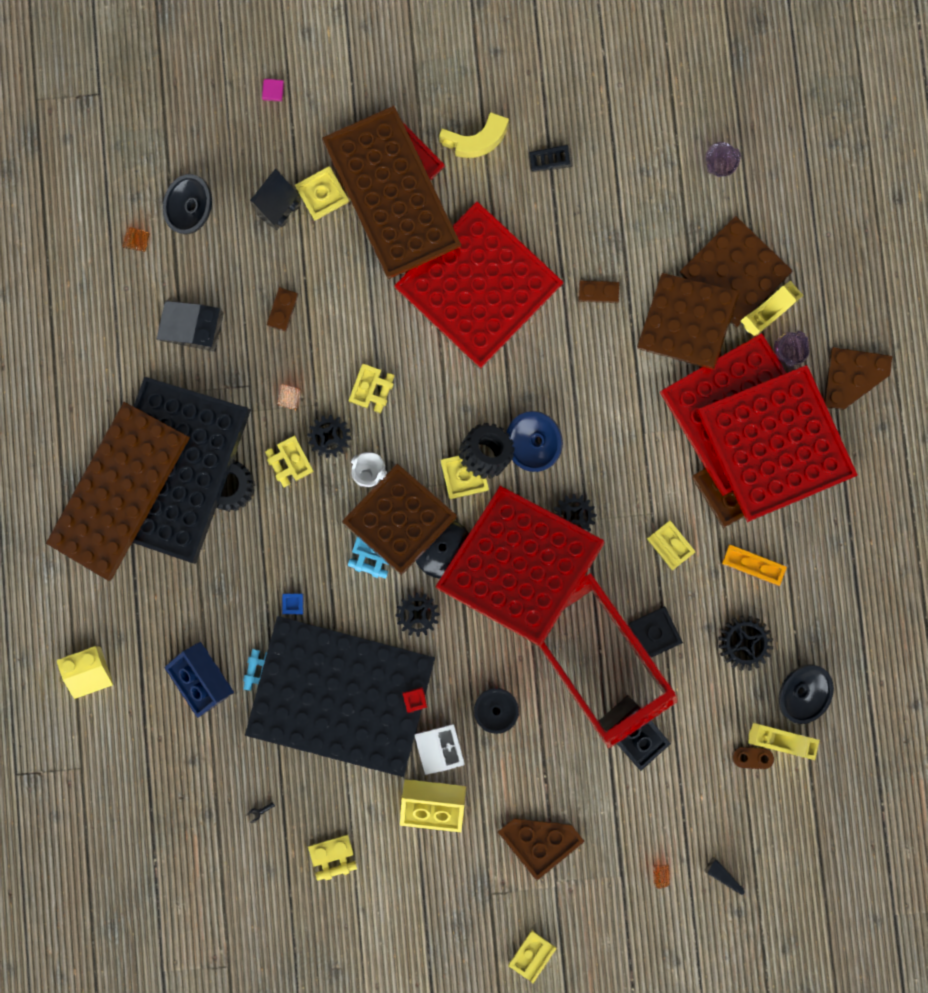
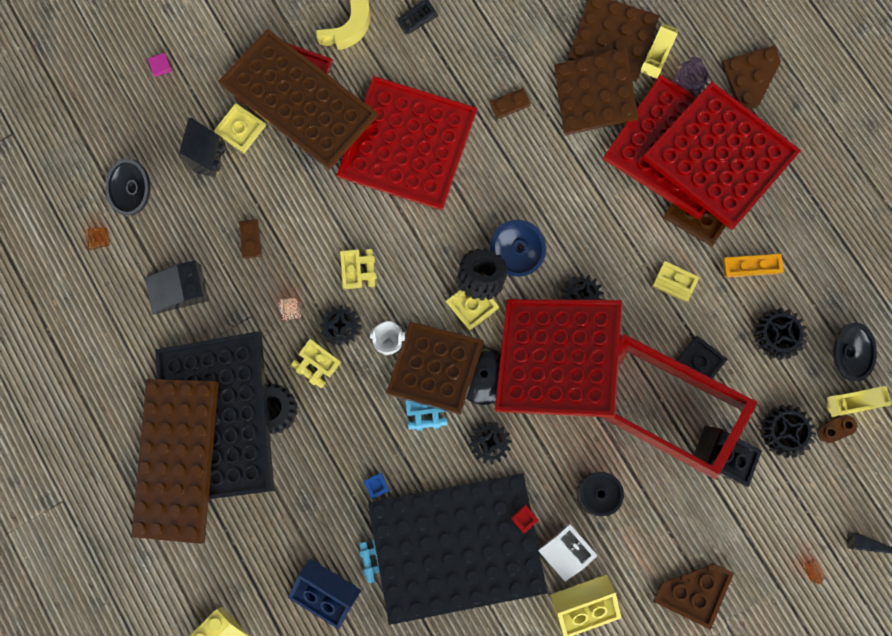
camera: 25 degrees left, 5 degrees down
(704, 746) = (792, 437): none -> black gear

